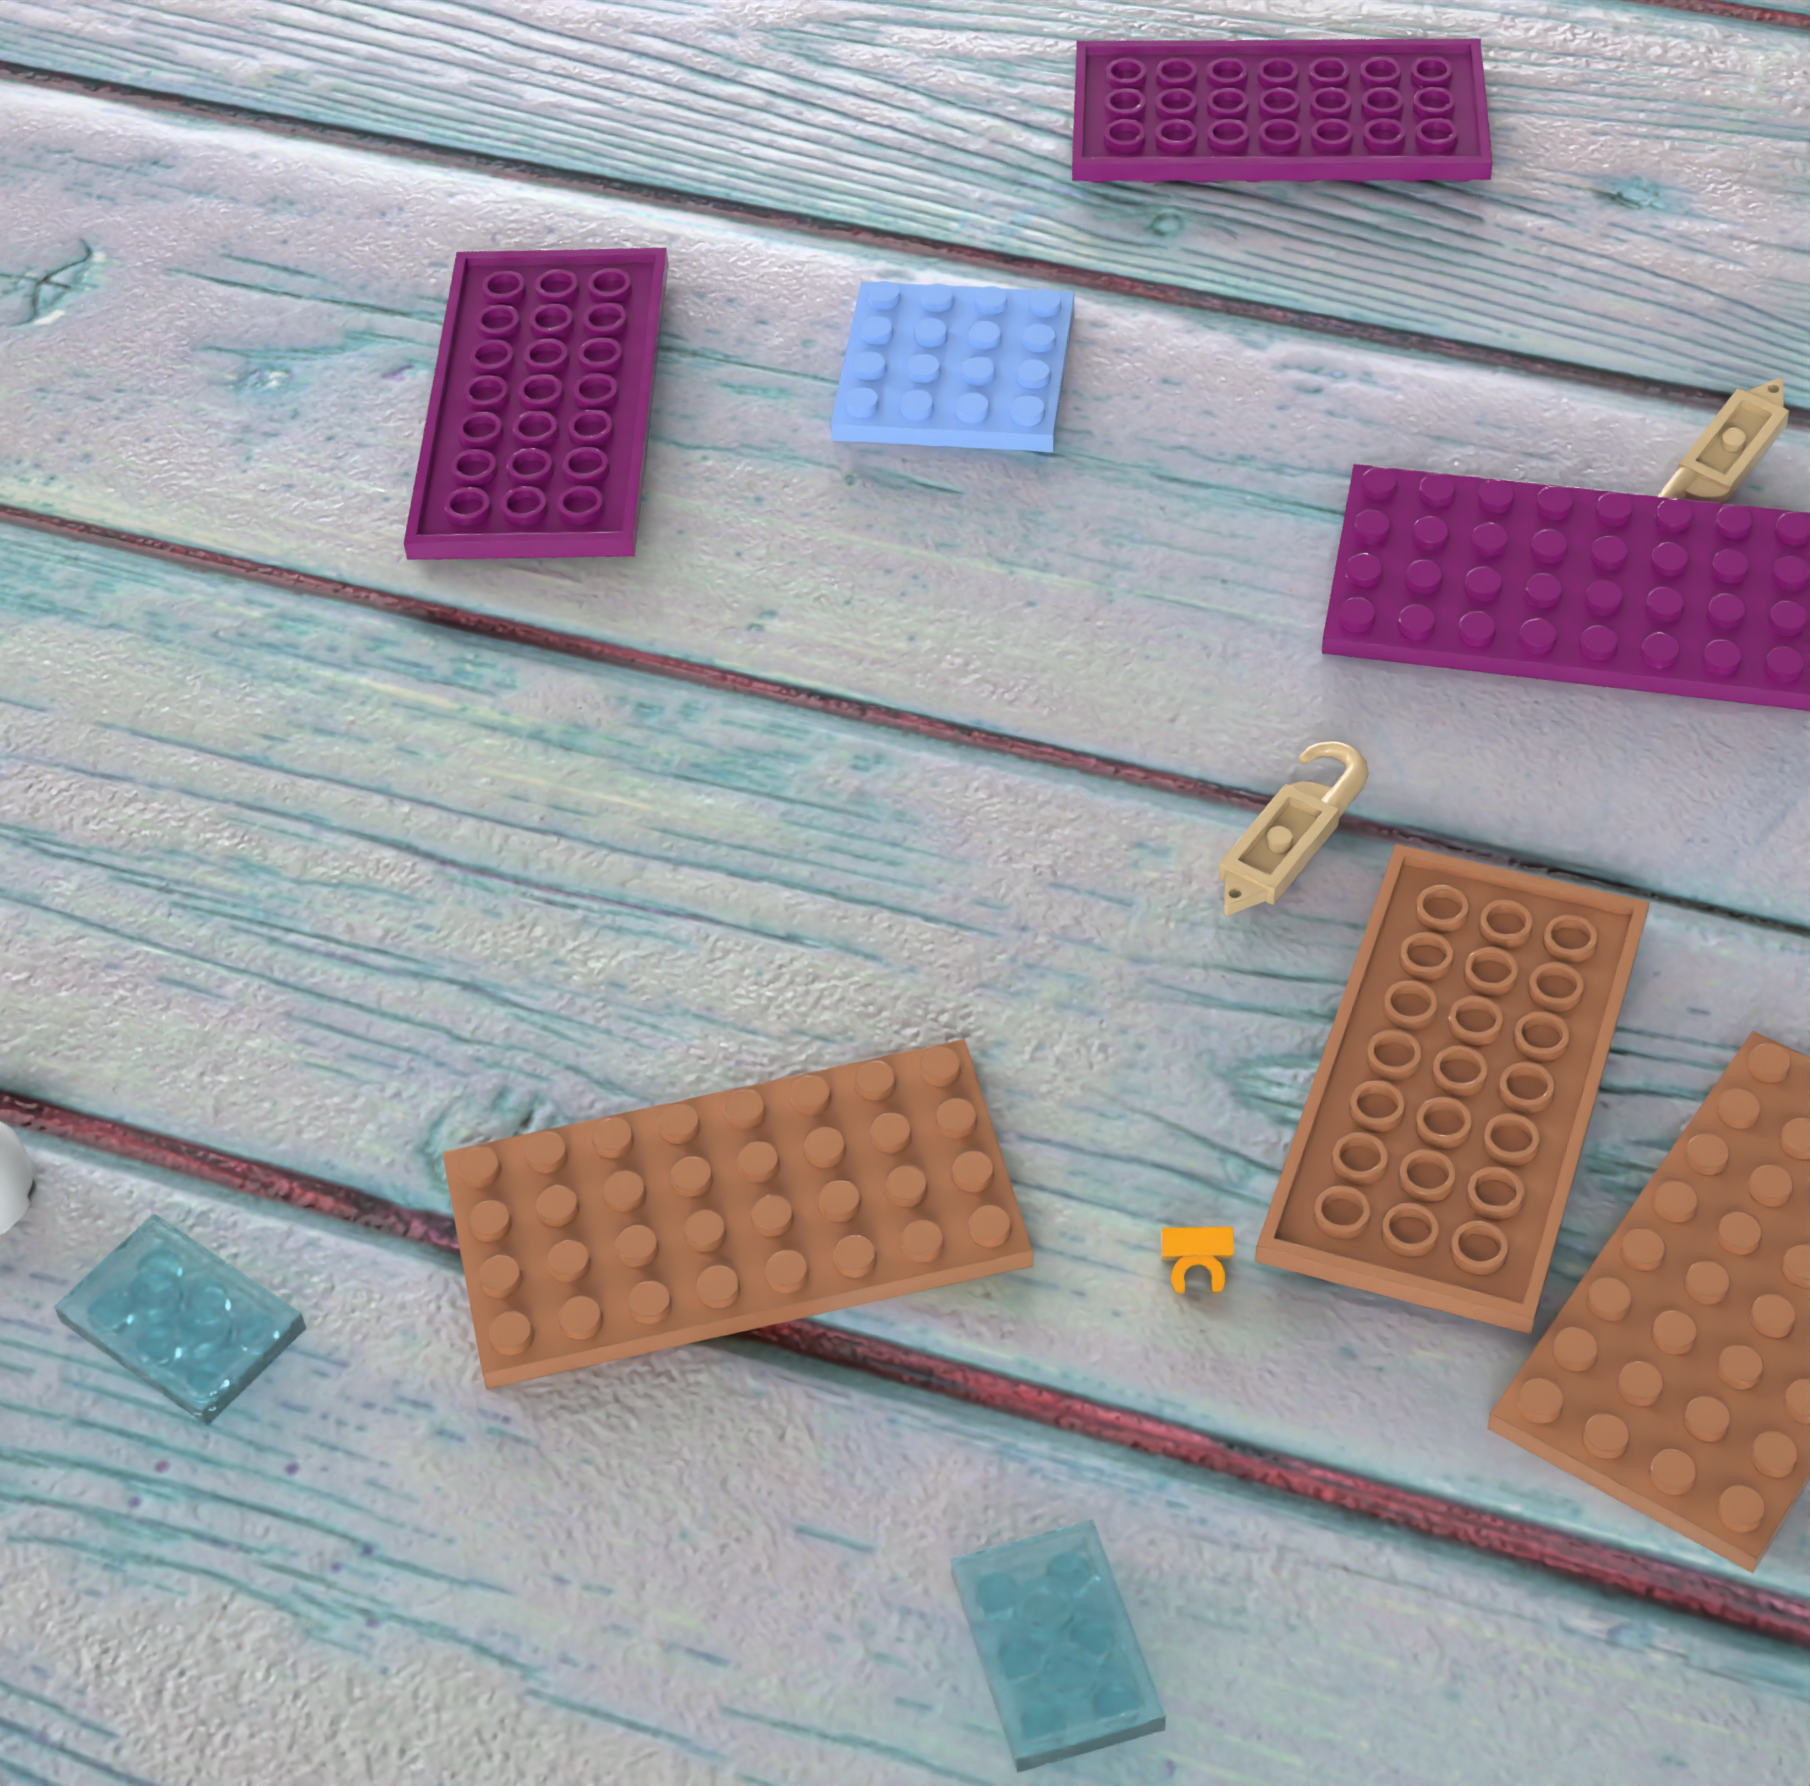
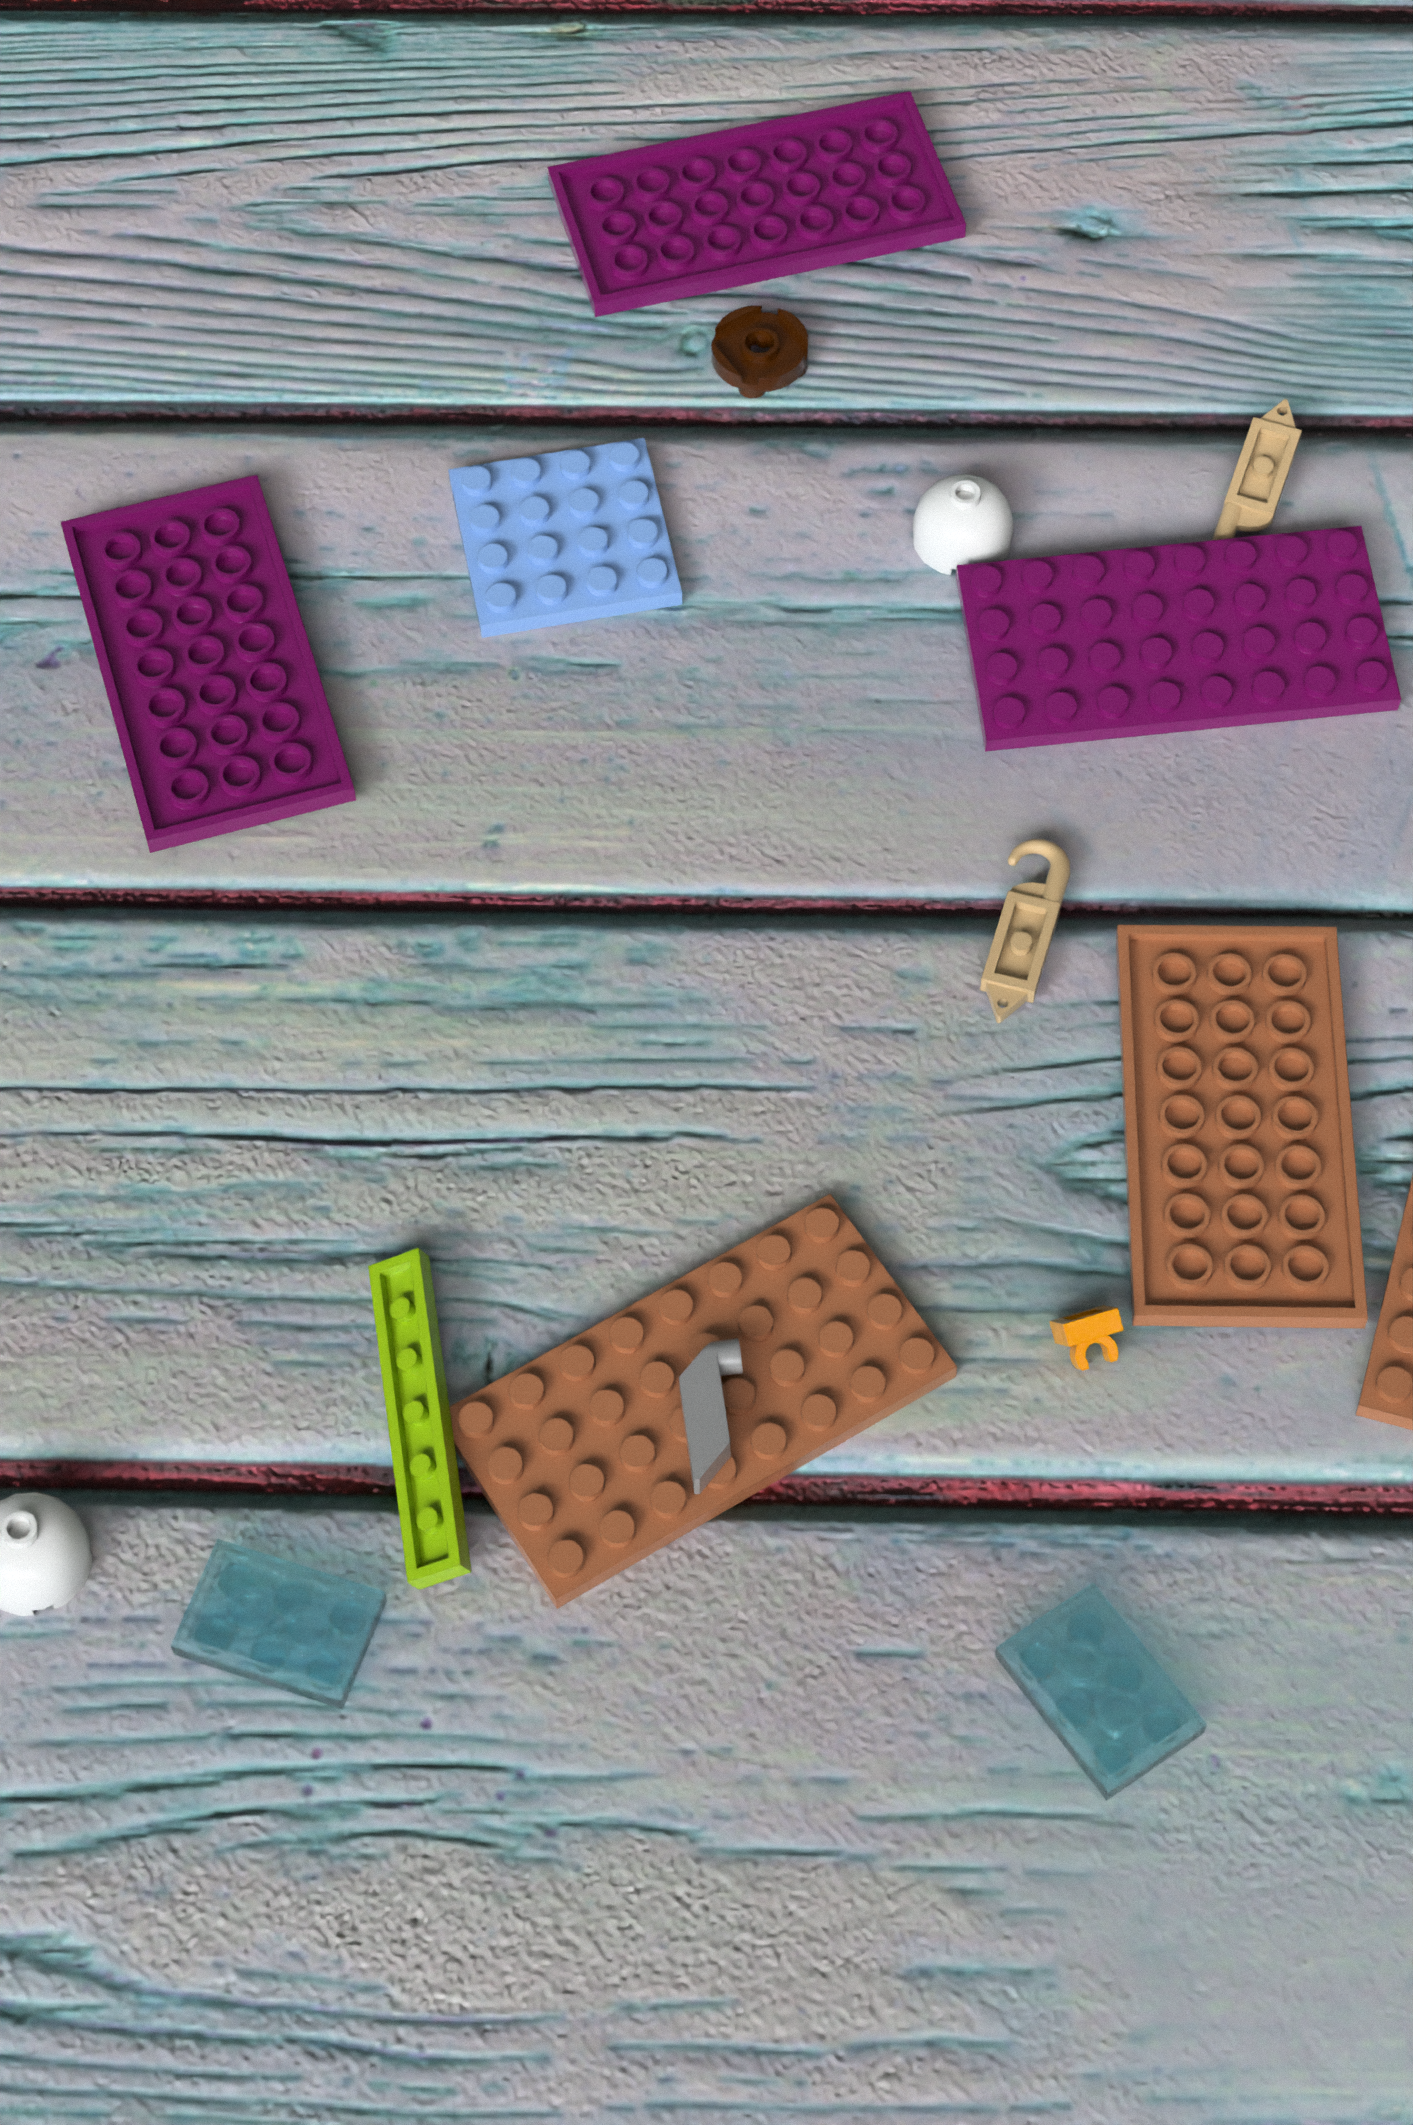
camera: 20 degrees left, 10 degrees up
(419, 1155) = (419, 1420): none -> lime plate
(724, 1215) = (705, 1409): none -> light grey piece
(1252, 241) = (765, 371): none -> reddish brown plate
(1379, 425) = (962, 523): none -> white cylinder

